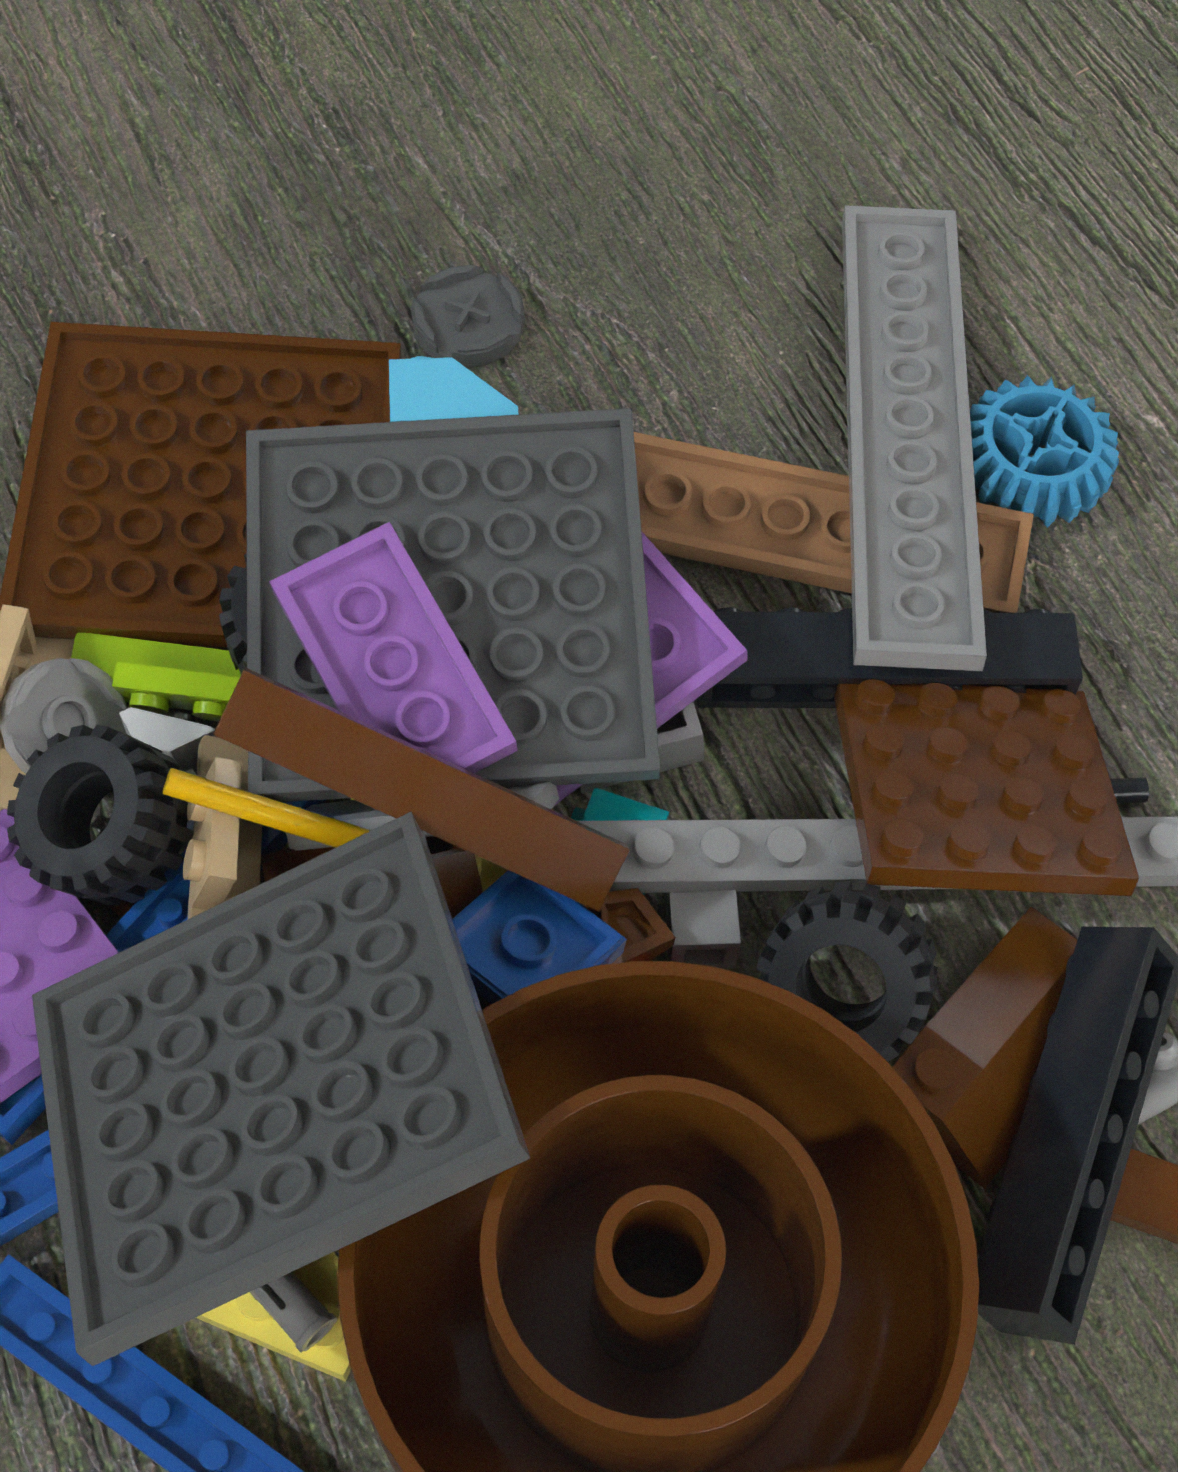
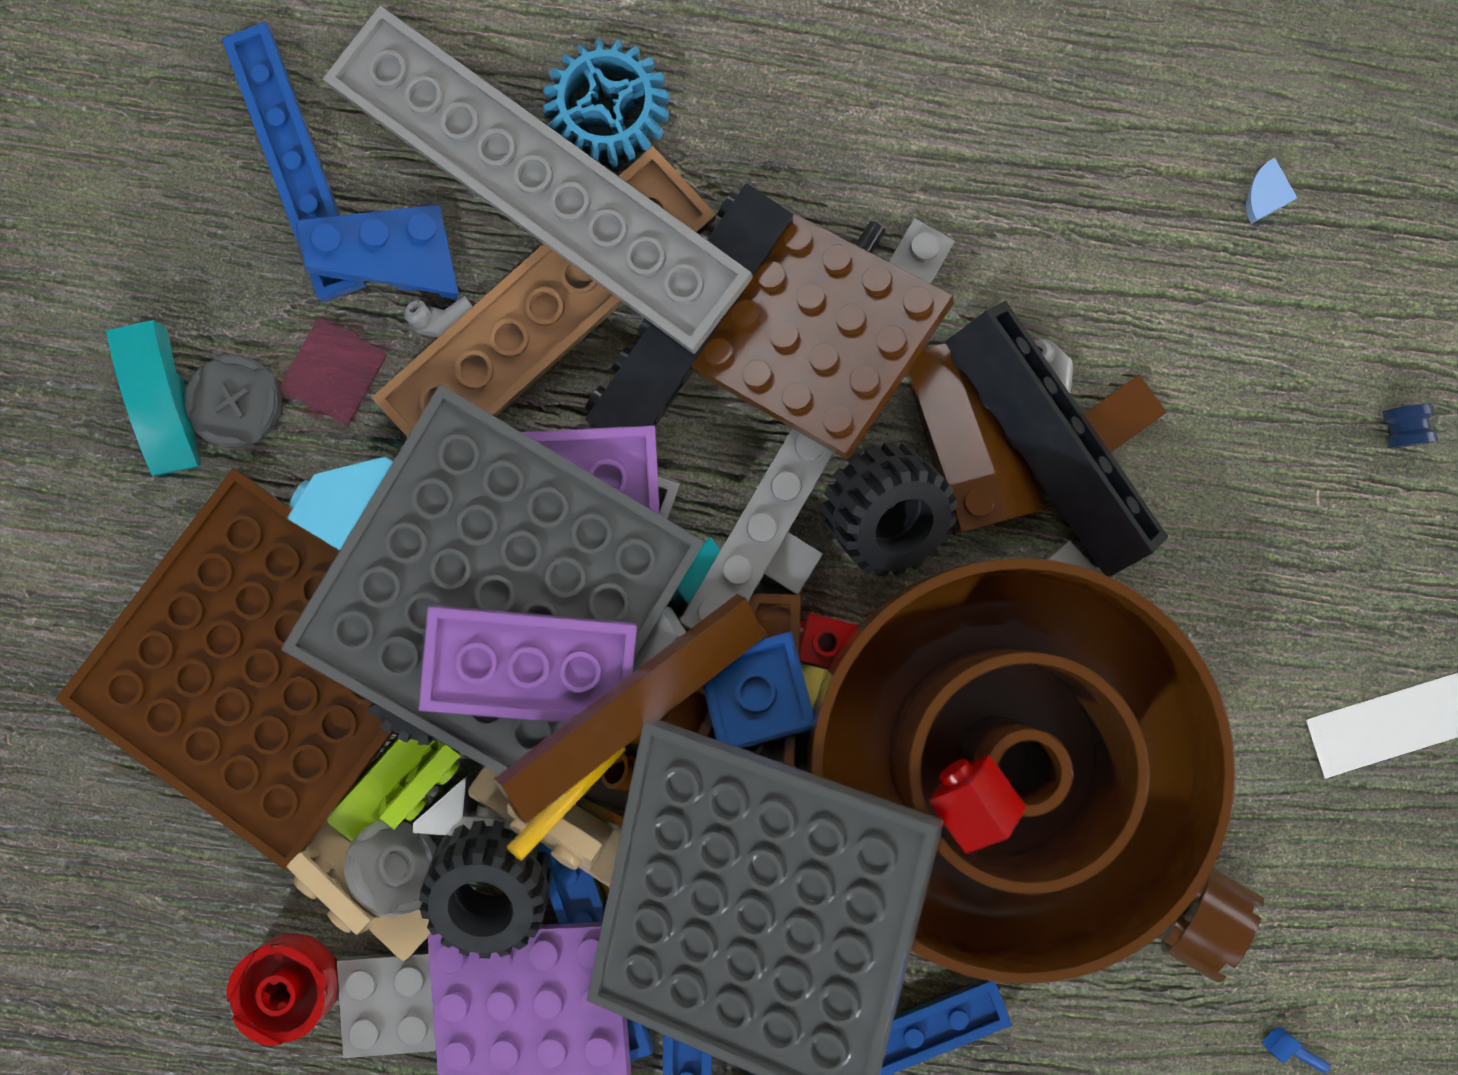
camera: 55 degrees left, 25 degrees up
(421, 242) = (154, 396): none -> teal slope
(564, 376) = (333, 371): none -> clear pink piece
(579, 1194) = (977, 803): none -> red brick
(683, 426) = (432, 320): none -> light grey arm
(730, 348) = (382, 247): none -> blue wing
(741, 235) = (284, 138): none -> blue plate

